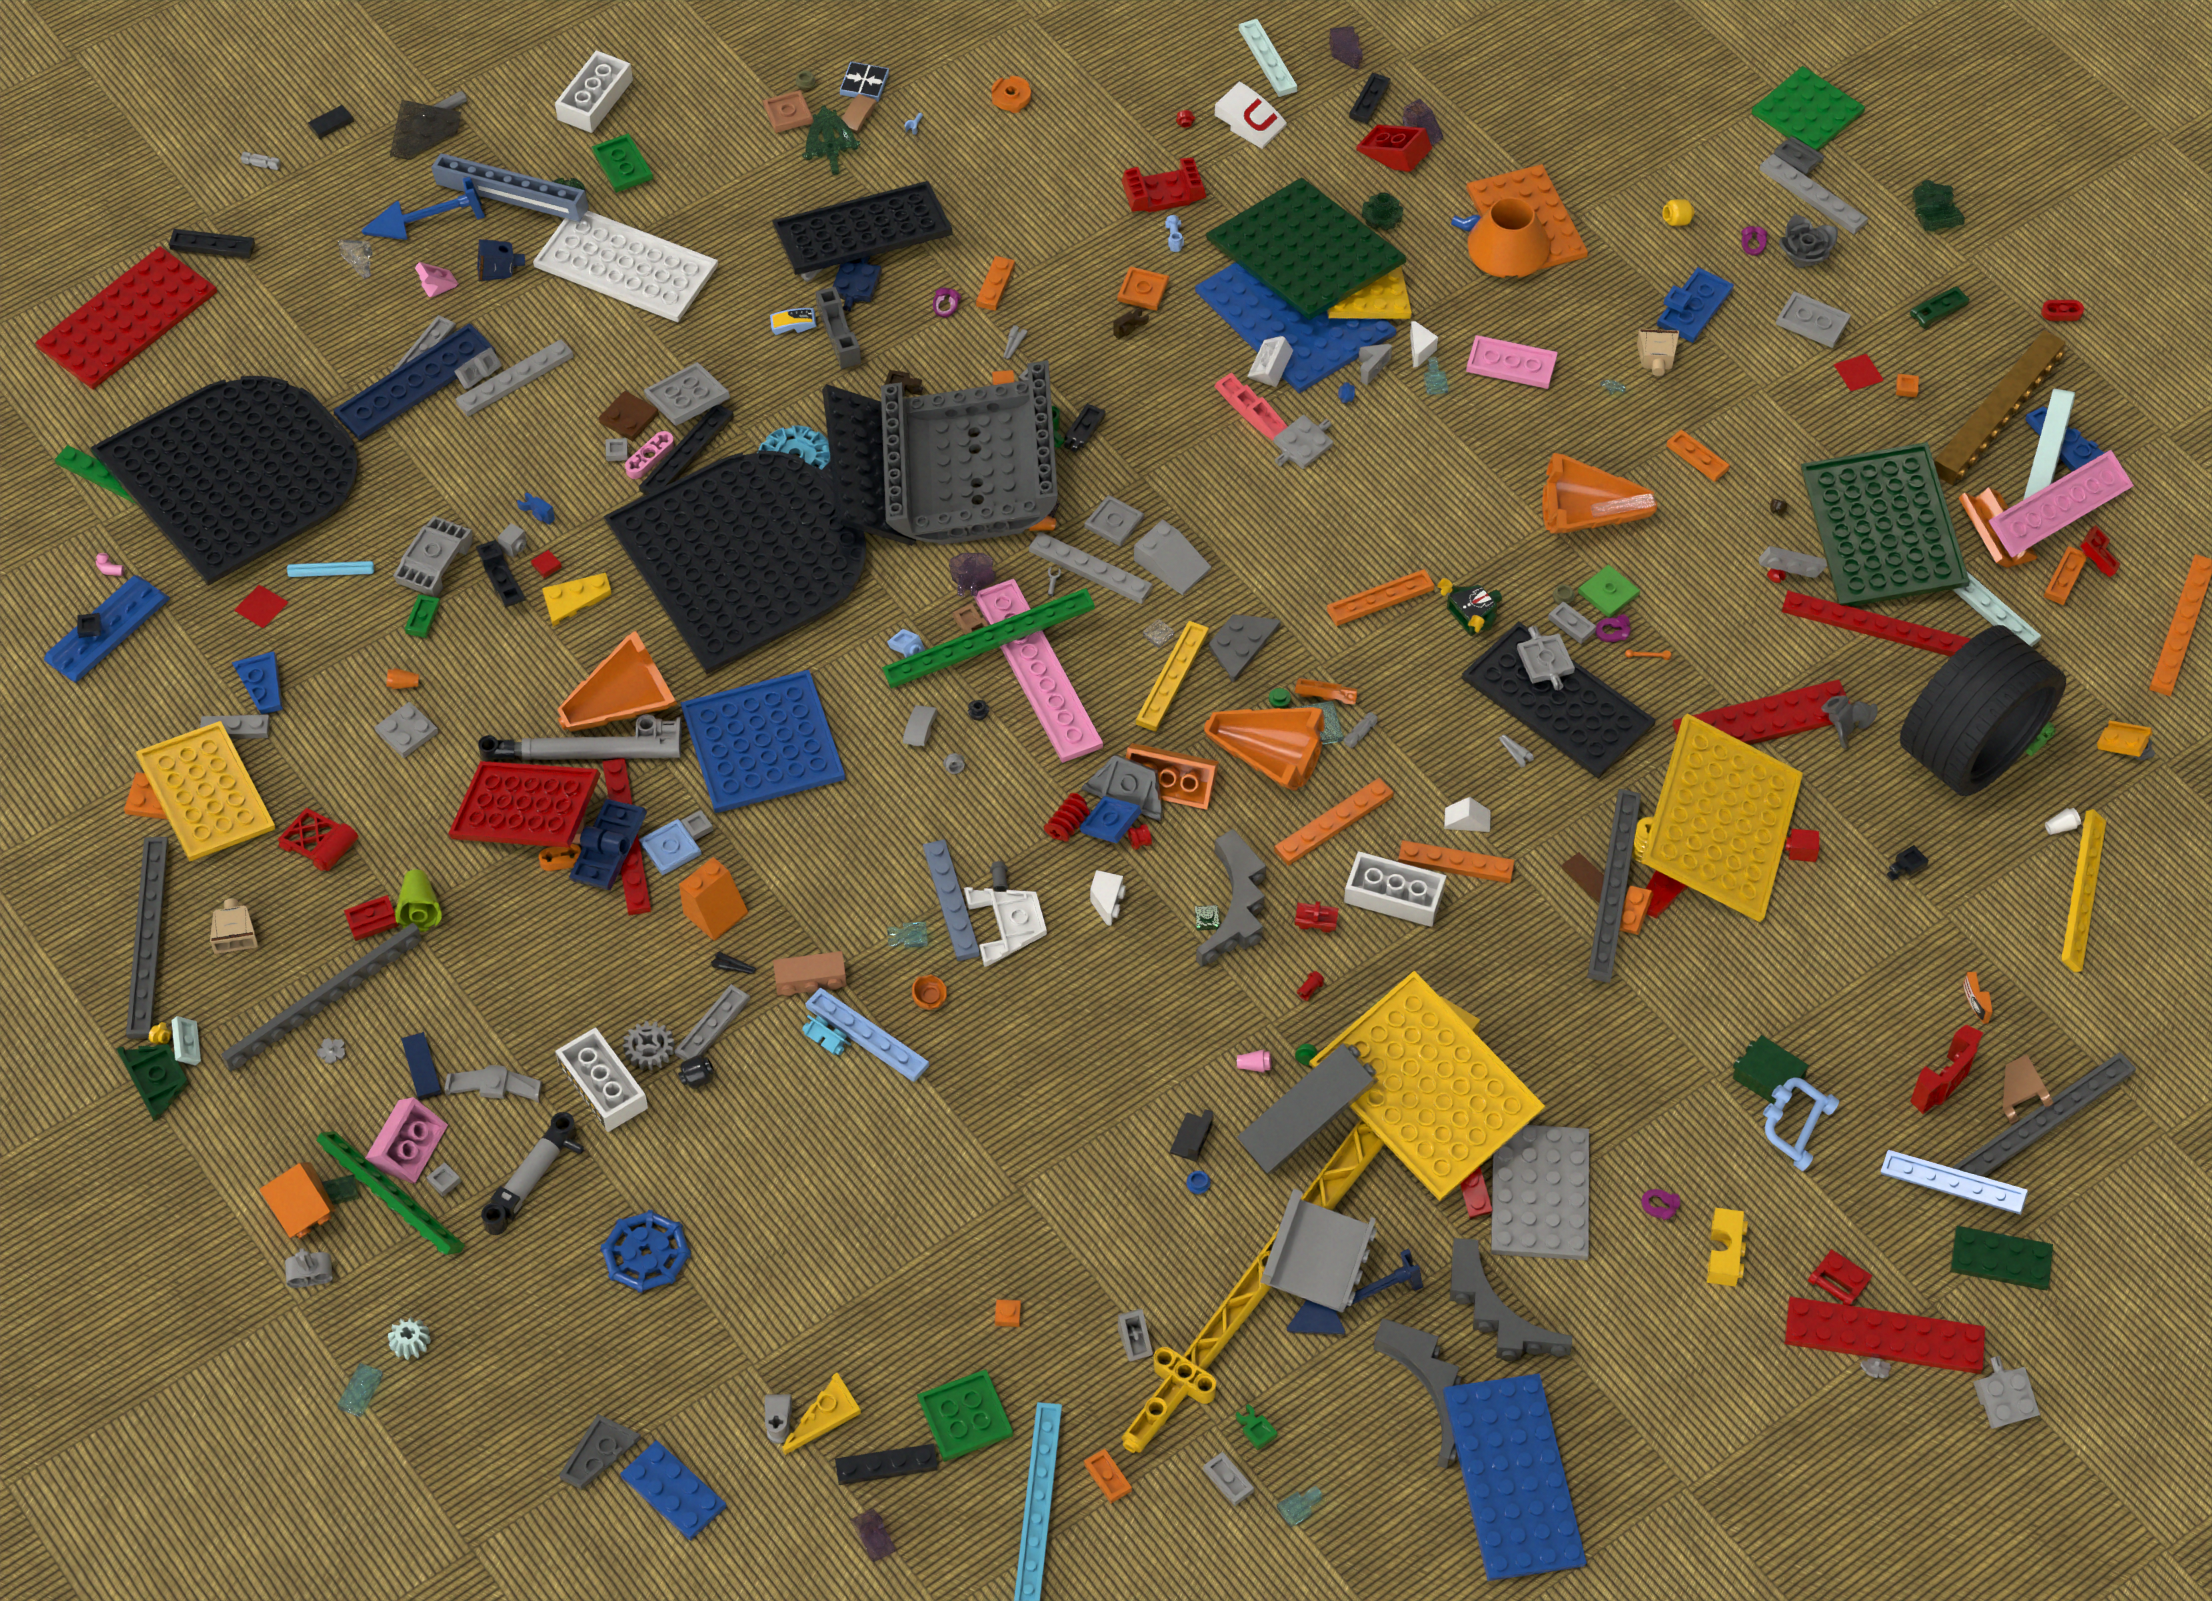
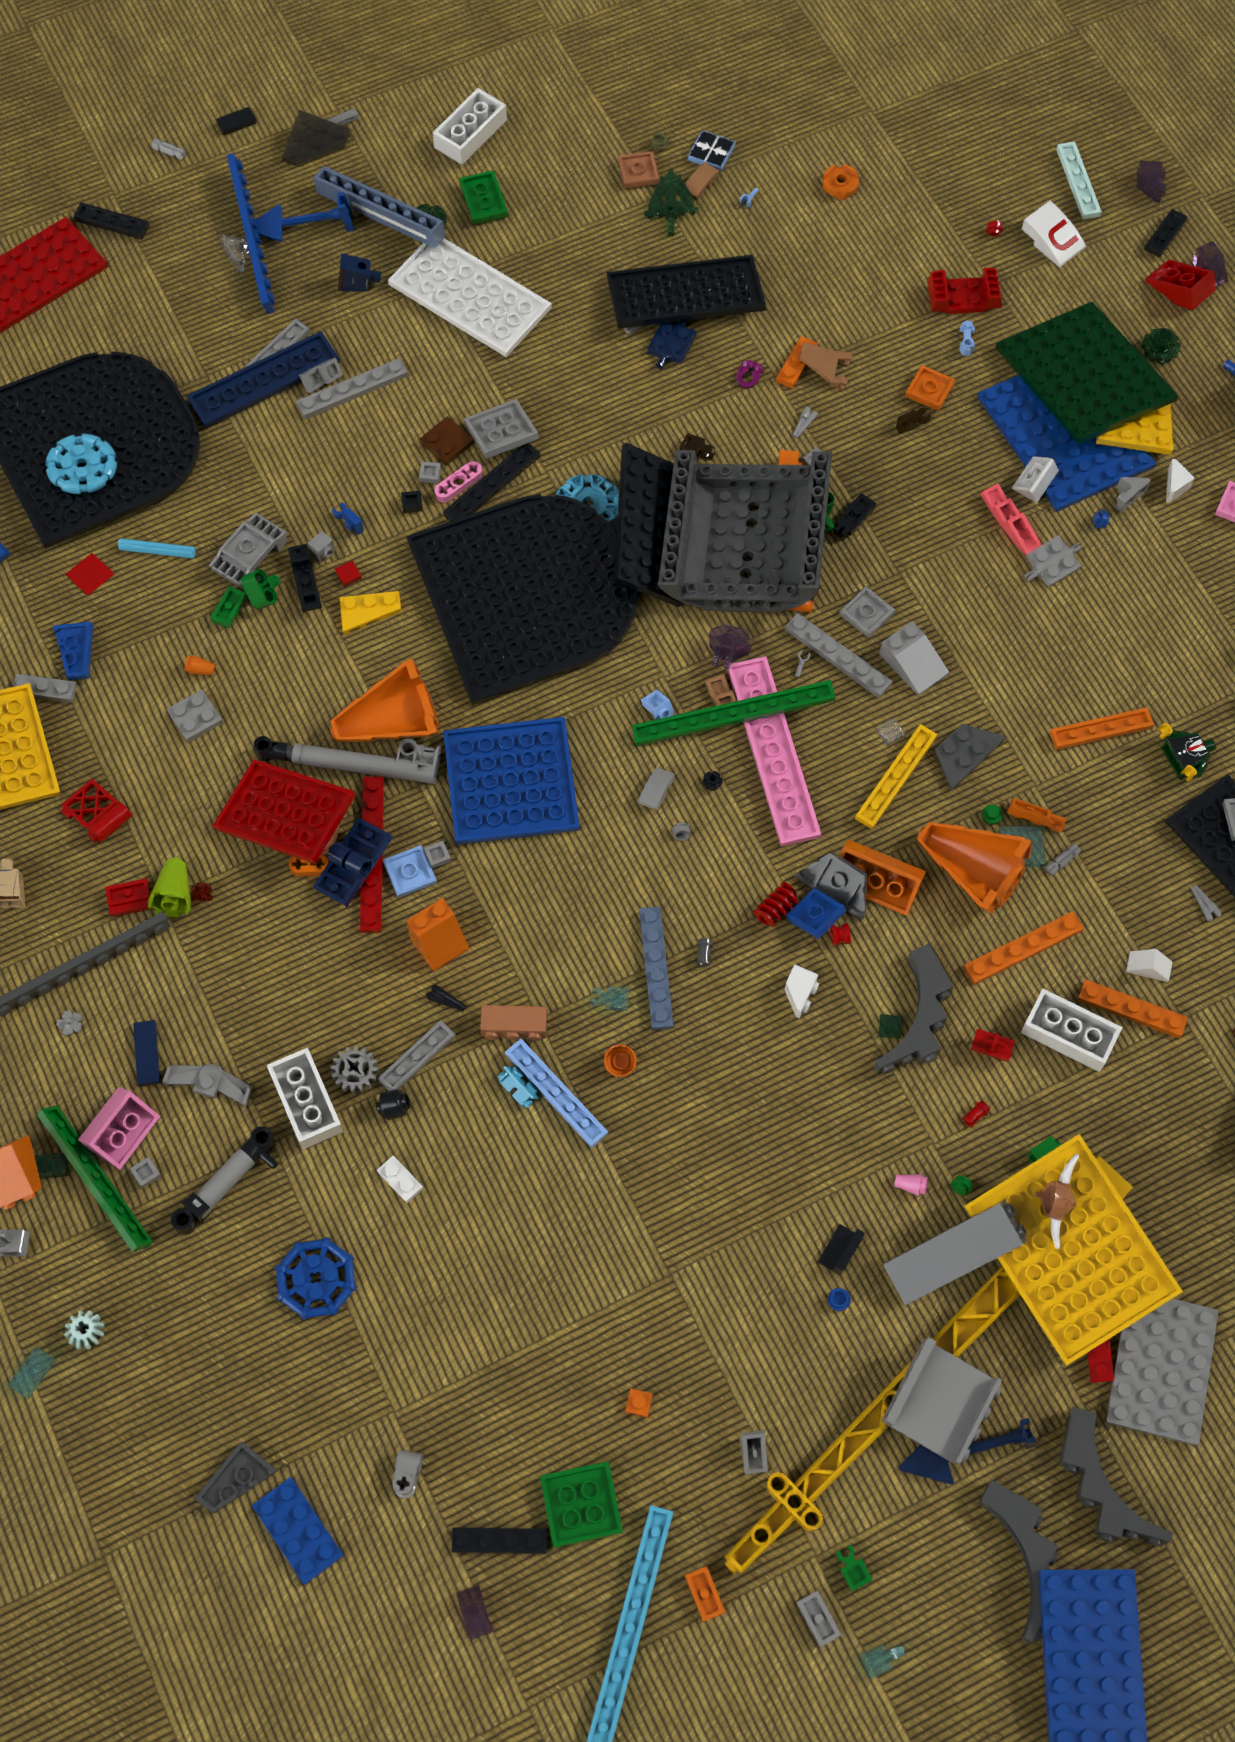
camera: 10 degrees right, 10 degrees up
(232, 482) = (81, 454): none -> medium azure plate
(374, 238) = (252, 237): none -> blue plate
(435, 279) = (299, 283): bright pink slope -> none
(450, 900) = (202, 892): none -> clear red plate
(454, 590) = (260, 588): none -> green beam
(602, 481) = (412, 501): none -> black plate
(717, 1144) = (400, 1179): none -> white plate
(798, 319) = (613, 370): slope -> none
(830, 1410) = (457, 1475): yellow wing -> none
(842, 340) = (646, 383): dark grey arch -> none
(1017, 918) = (714, 998): white wing -> none
(1026, 279) = (825, 363): none -> medium nougat flag
(1403, 1035) = (1058, 1199): none -> nougat helmet
(1435, 380) = (1184, 519): clear light blue plate -> none

